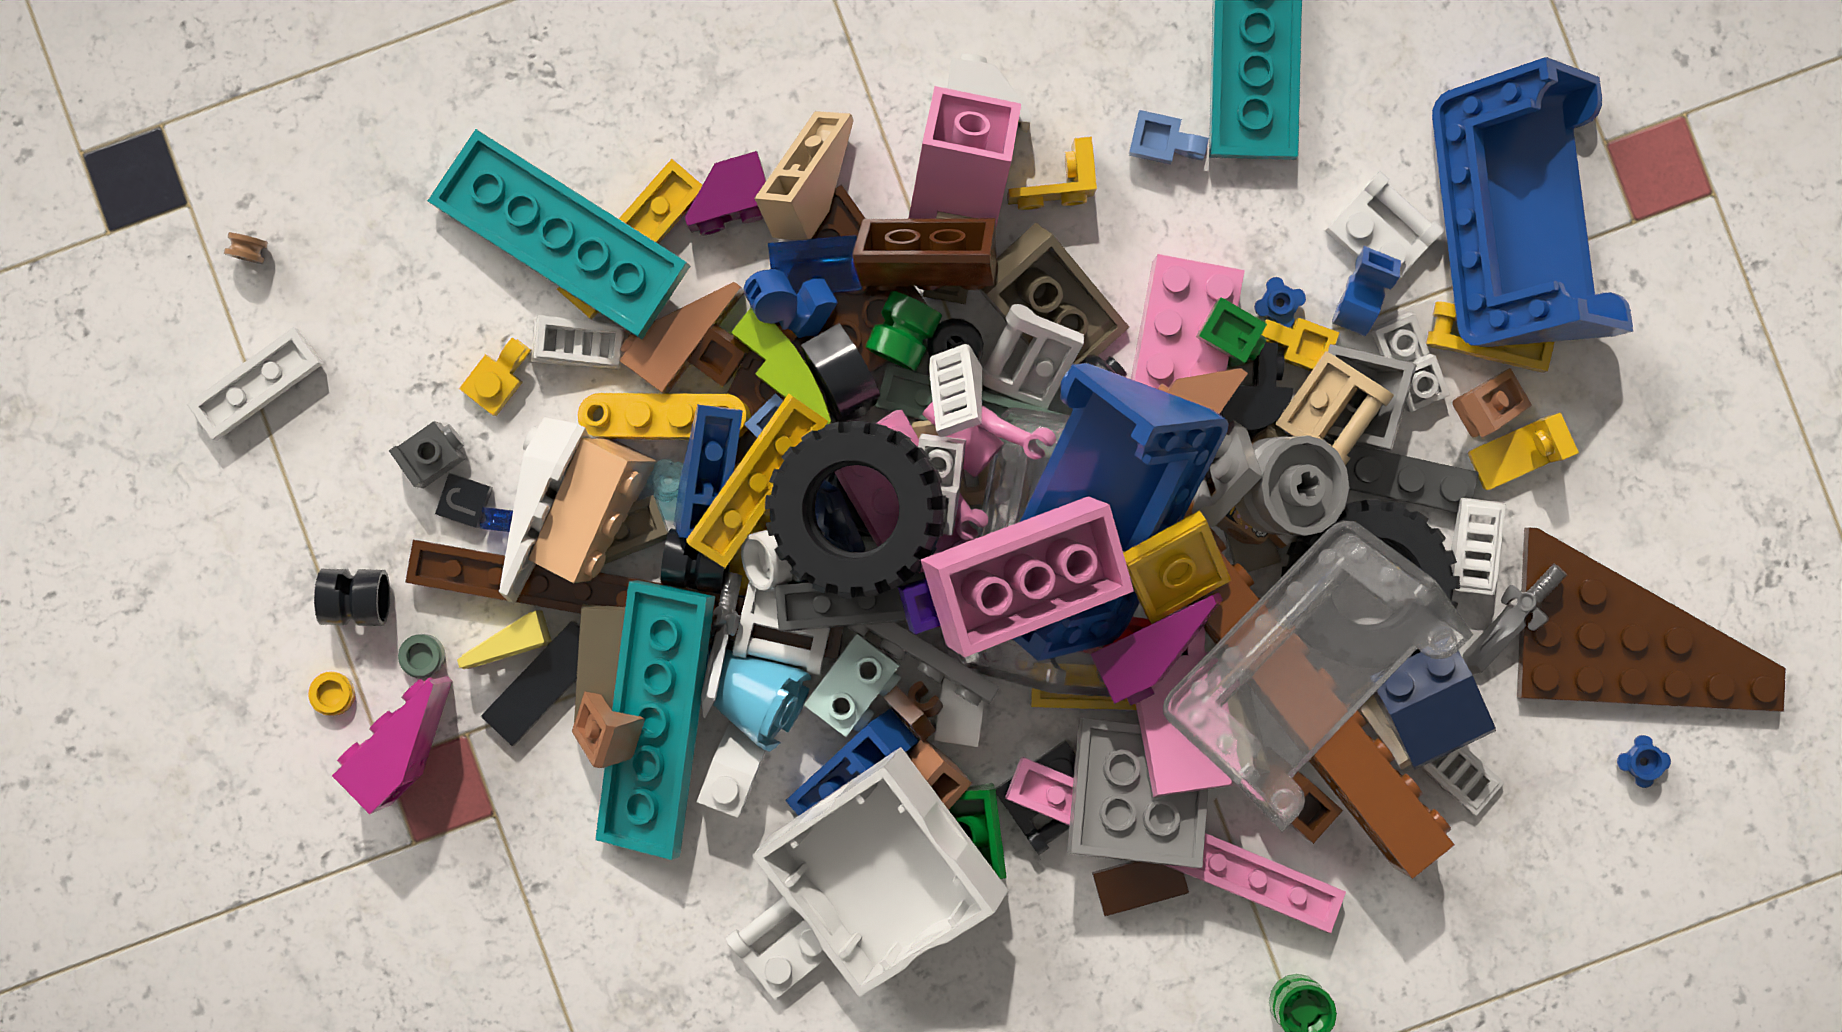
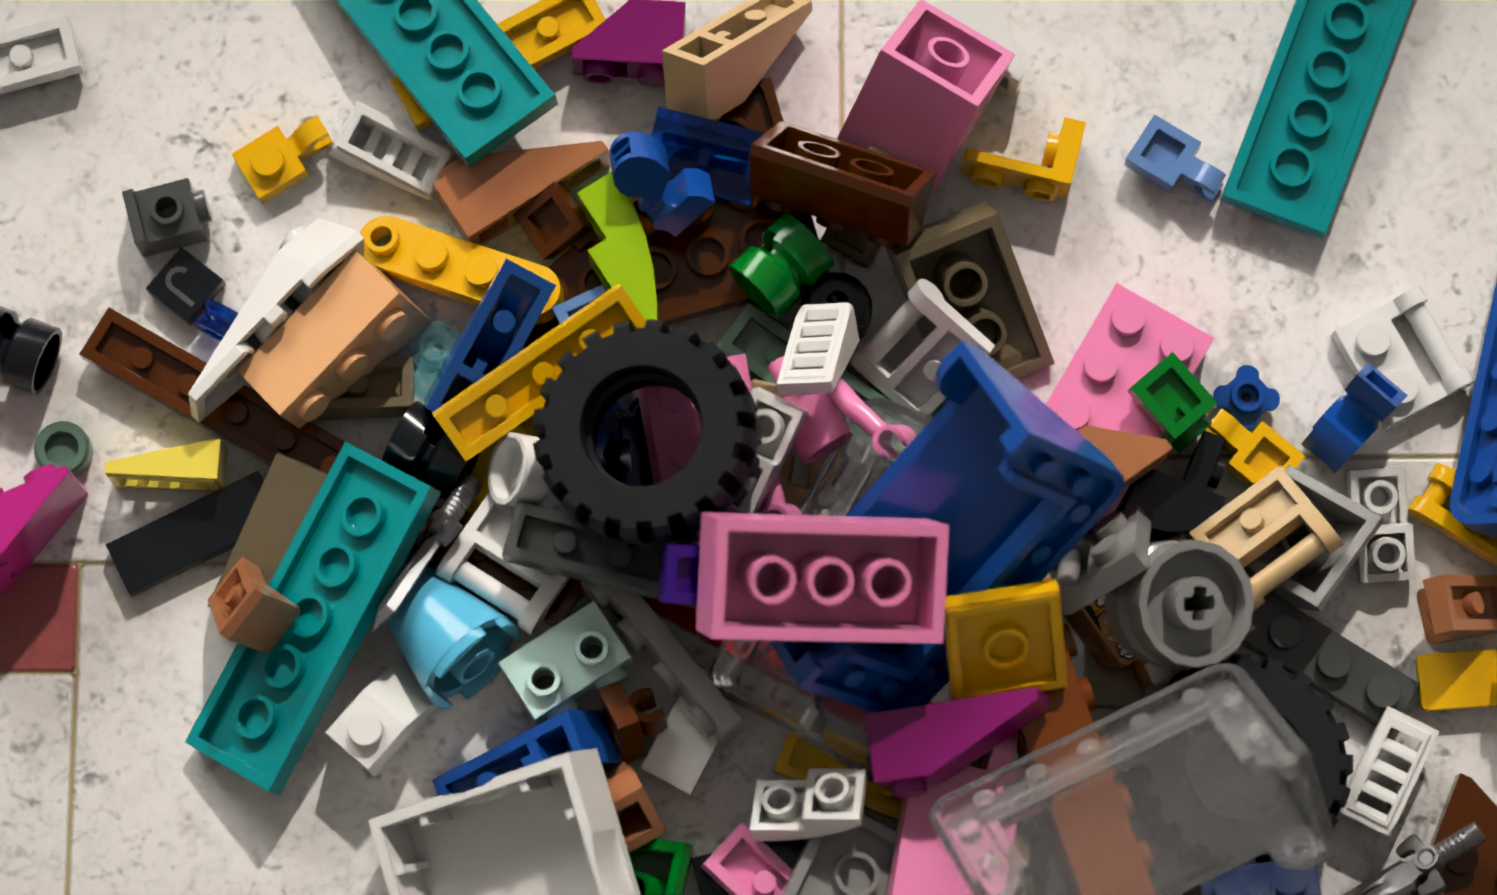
camera: 20 degrees right, 10 degrees down
(841, 374) = (690, 282): black brick -> none
(1071, 732) = (808, 808): none -> white slope

